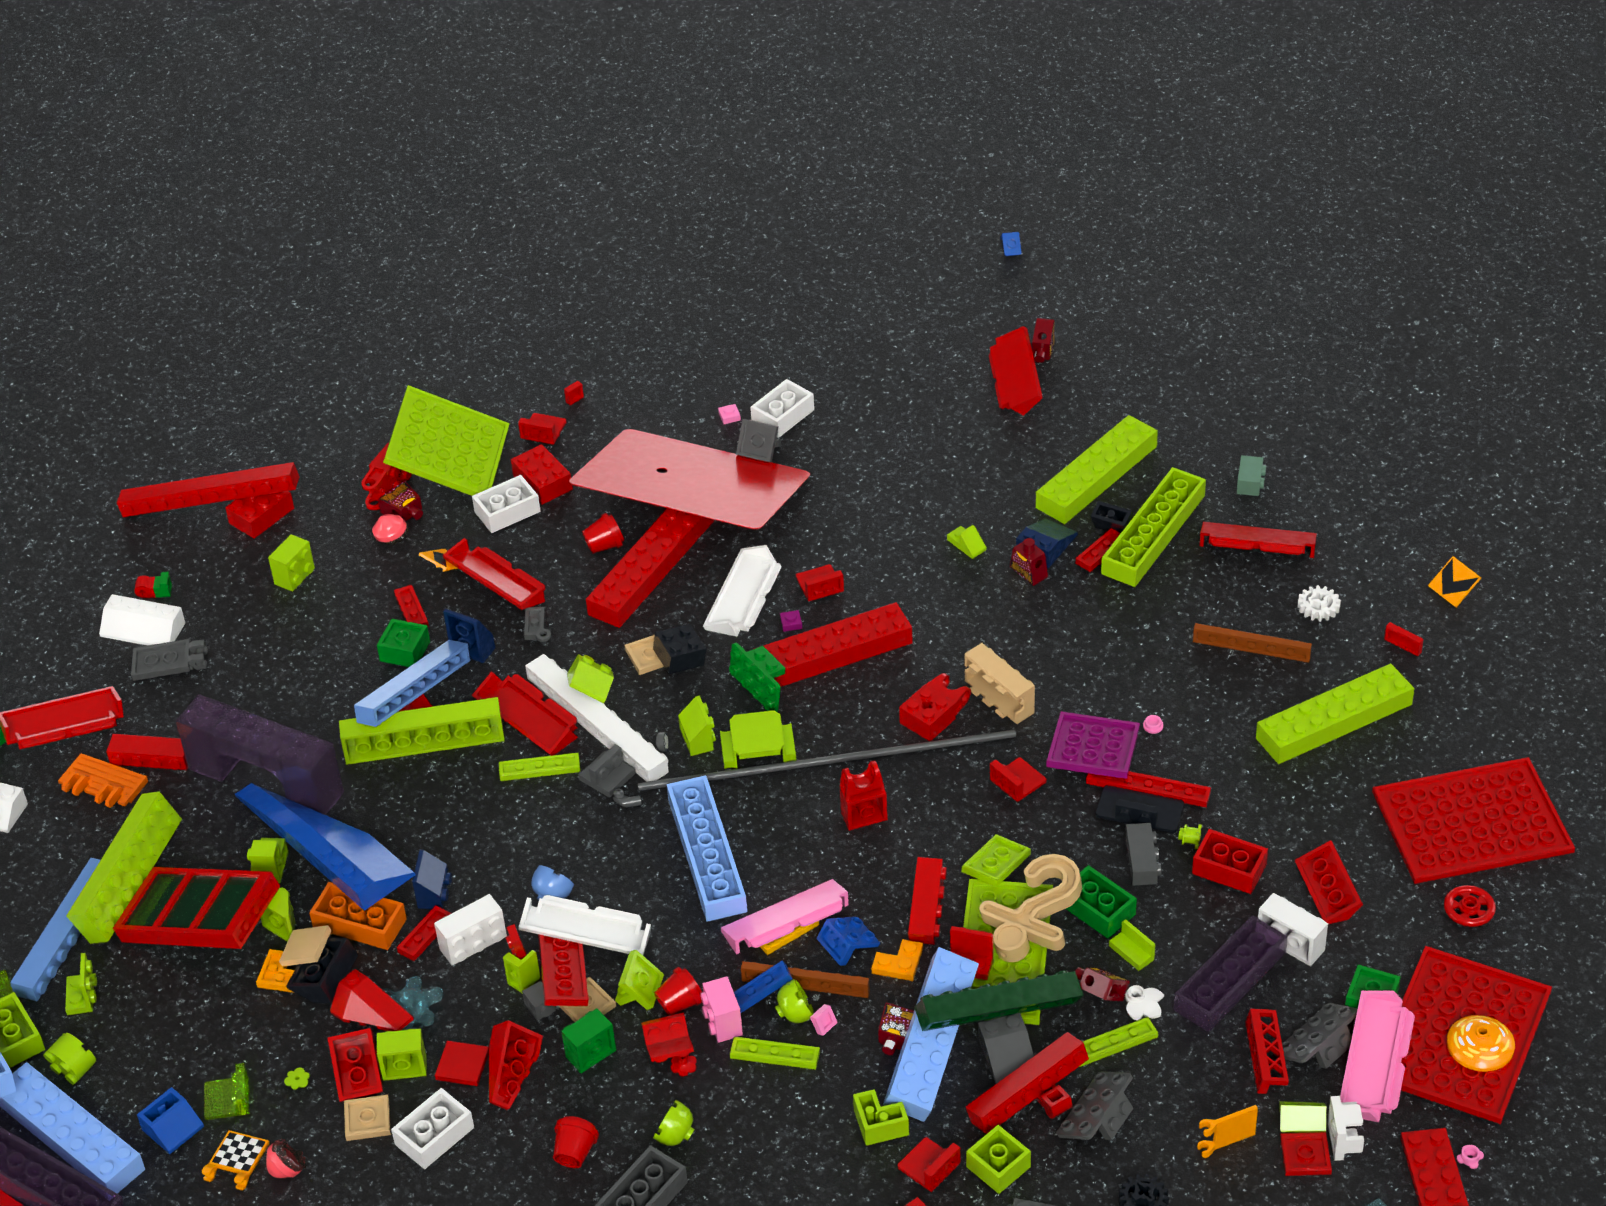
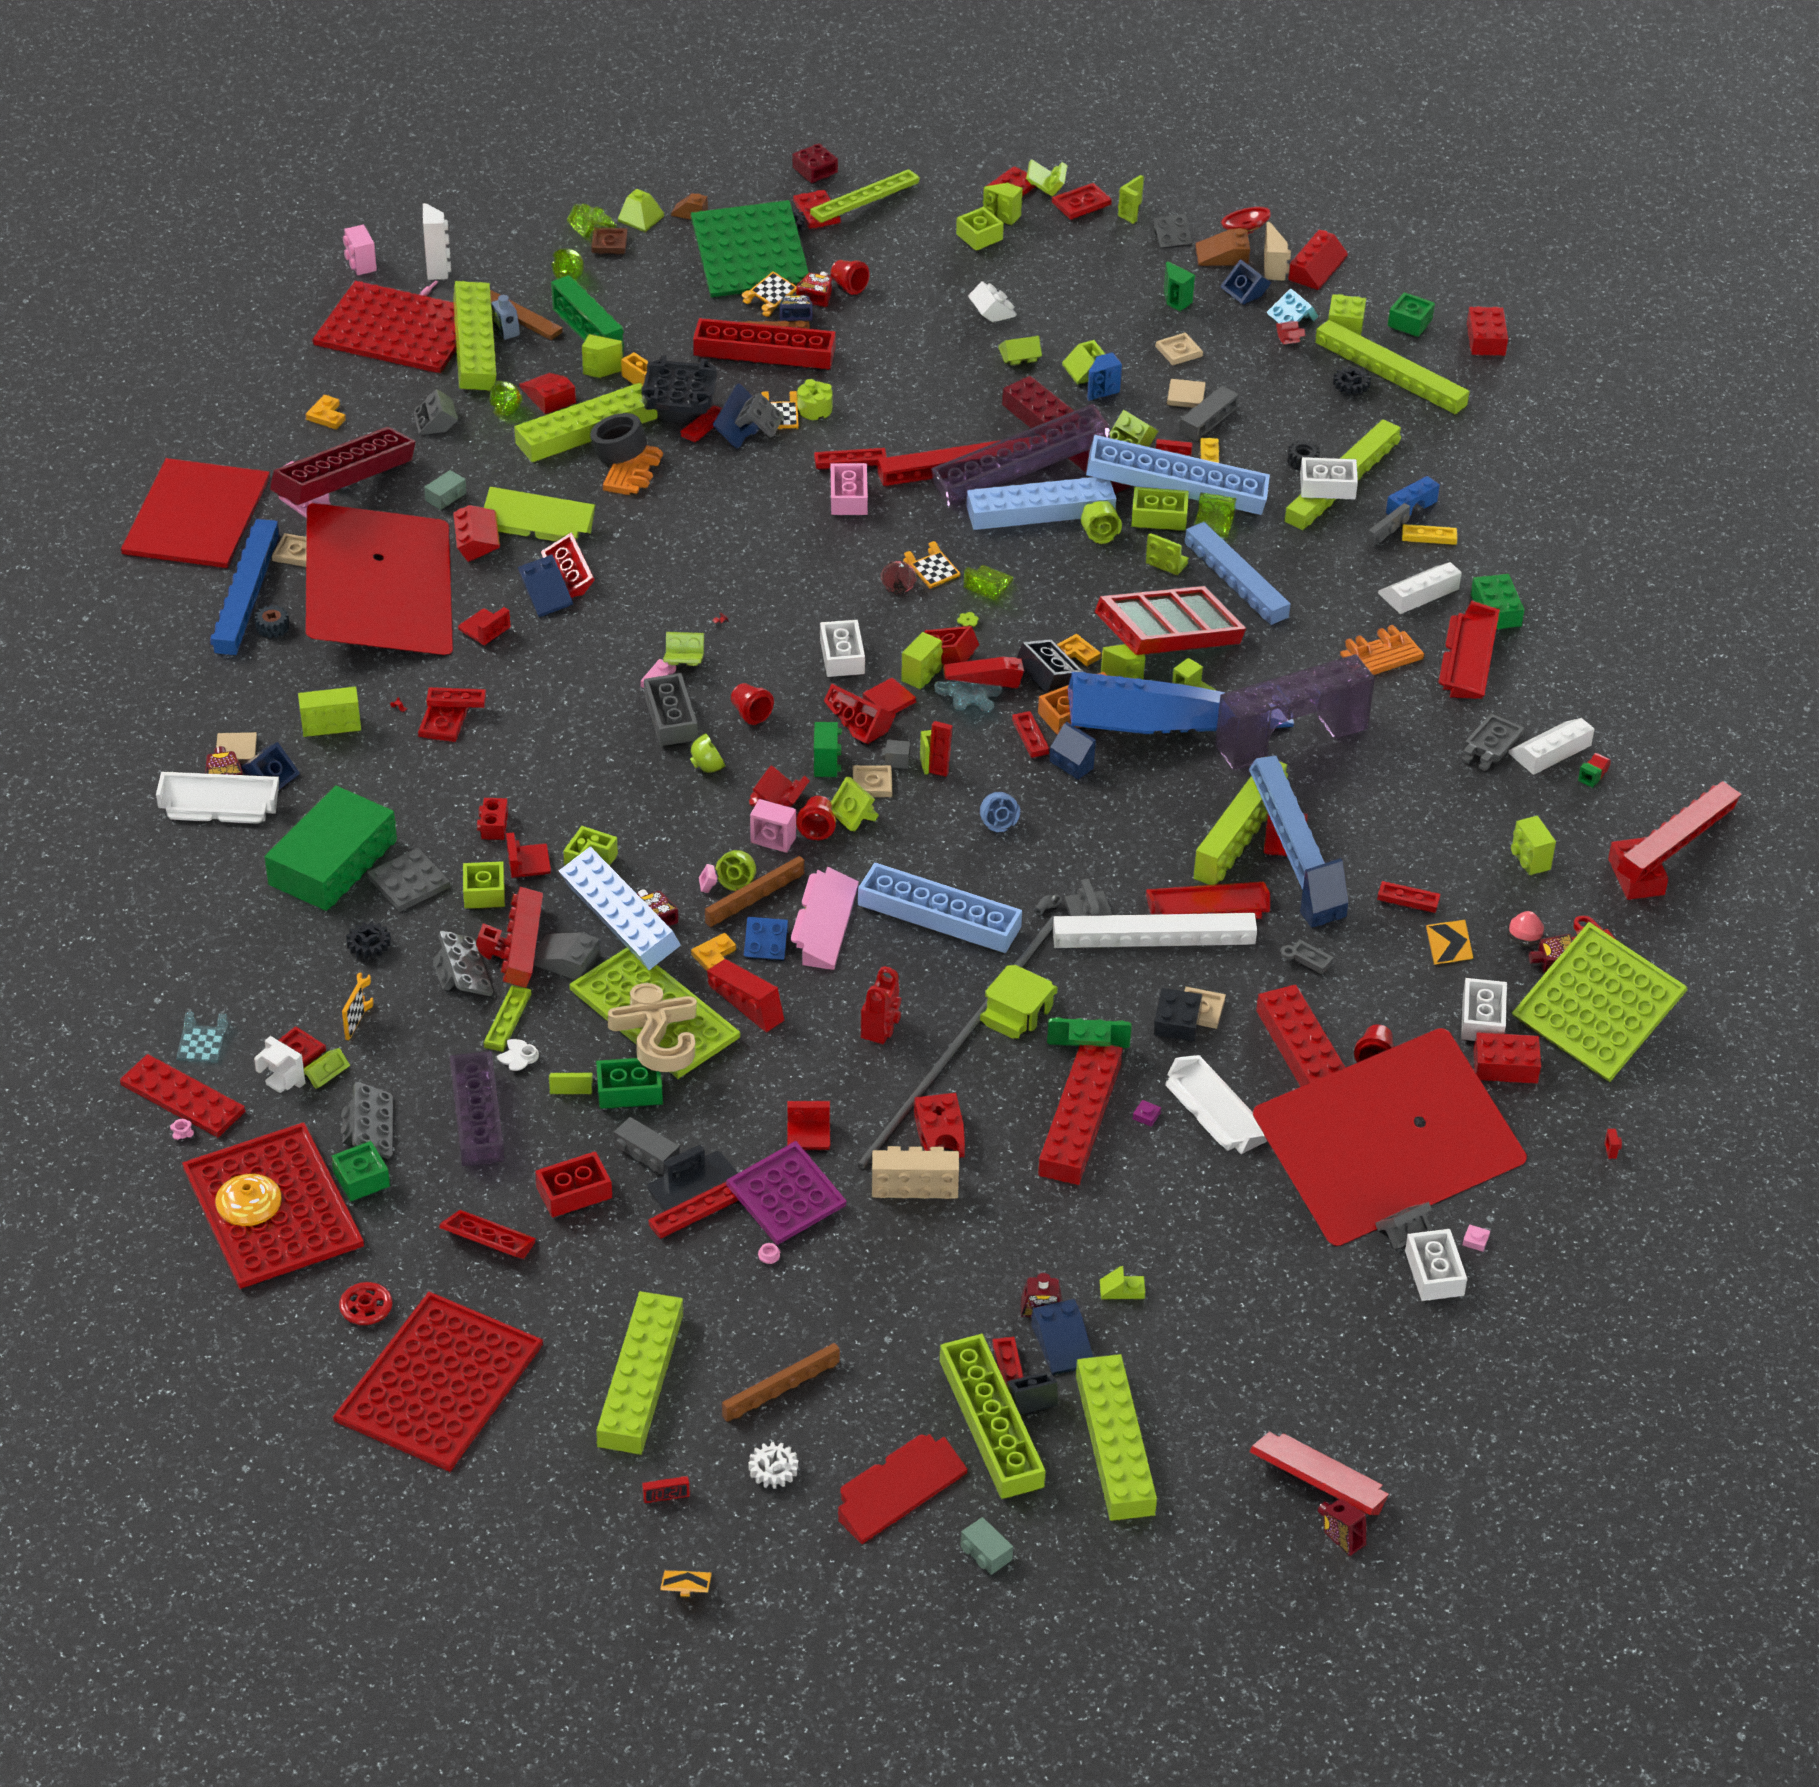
camera: 125 degrees right, 0 degrees up
(124, 867) = (1260, 613): lime brick -> none
(146, 752) = (1392, 680): red brick -> none
(169, 1120) = (993, 544): blue slope -> none
(305, 945) = (1076, 660): tan tile -> none
(367, 1117) = (895, 635): tan tile -> none
(403, 643) = (1363, 863): green container -> none
(470, 929) = (997, 745): white brick -> none
(497, 574) = (1393, 961): red slope -> none
(539, 766) = (1139, 879): lime tile -> none
(541, 428) = (1577, 1095): red bracket -> none
(563, 972) = (916, 775): red plate -> none
(579, 924) = (936, 806): white slope -> none
(590, 677) = (1189, 932): lime slope -> none
(662, 742) = (1085, 953): dark grey tile -> none
(697, 727) = (1072, 975): lime slope -> none
(762, 986) = (770, 858): blue plate -> none
(775, 1052) = (713, 846): lime tile -> none
(820, 582) = (1170, 1154): red bracket -> none
(973, 946) = (663, 970): red bracket -> none
(996, 860) = (740, 1060): lime tile -> none
(998, 1001) = (595, 947): dark green brick -> none
(1011, 243) = (1548, 1623): blue bracket -> none
(1102, 983) = (554, 1030): dark red torso -> none
(1190, 835) = (629, 1188): lime brick -> none
(1259, 1051) = (397, 1078): red fence -> none
(1304, 931) = (467, 1166): white brick -> none
(1375, 1054) = (309, 1126): bright pink slope -> none

